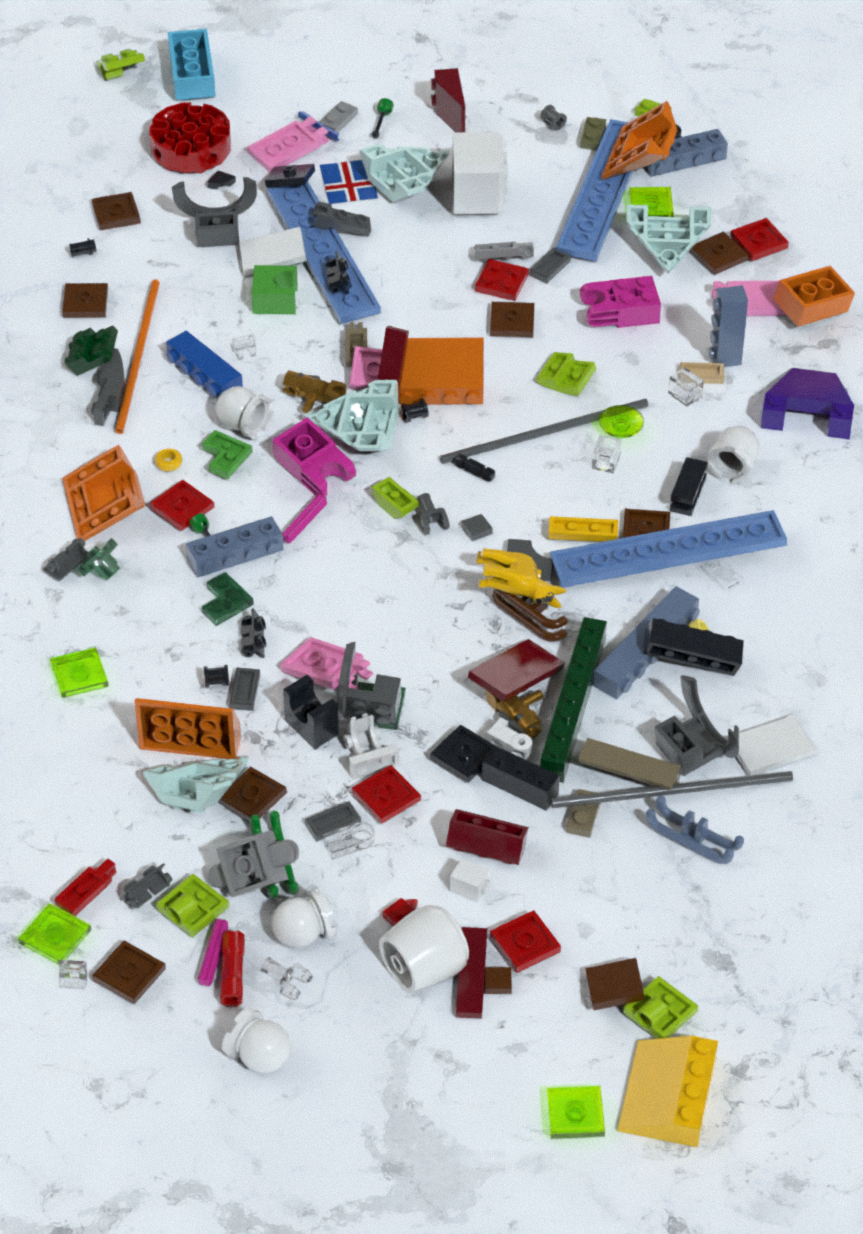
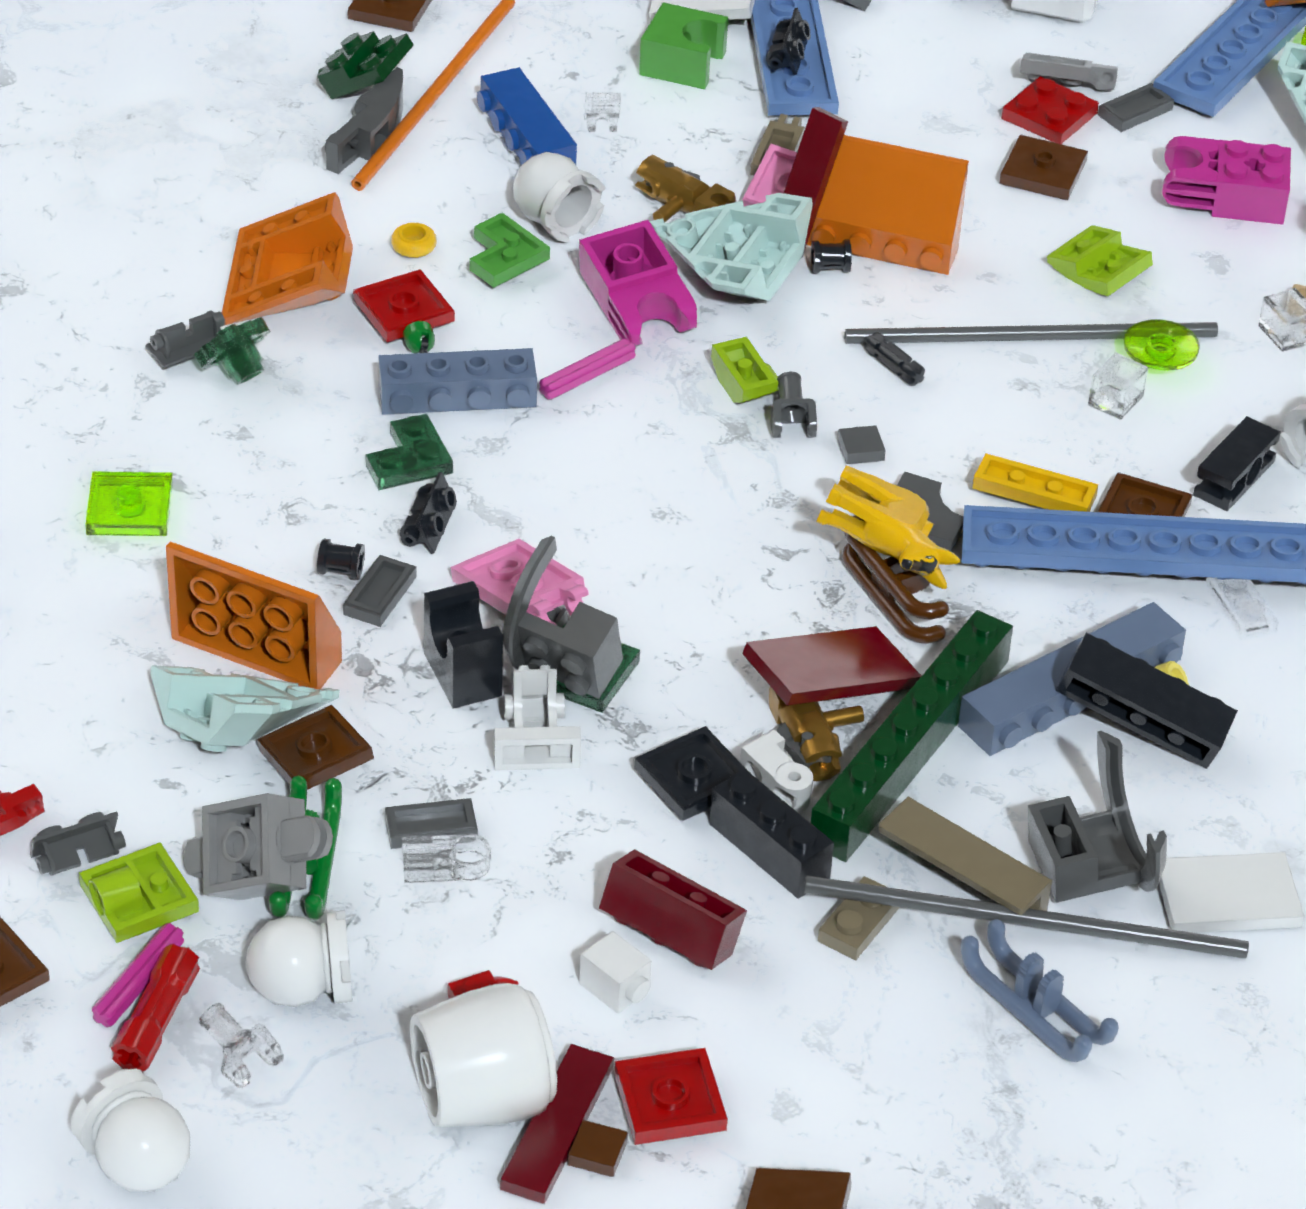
camera: 15 degrees right, 5 degrees down
(386, 794) = (536, 803): red plate -> none

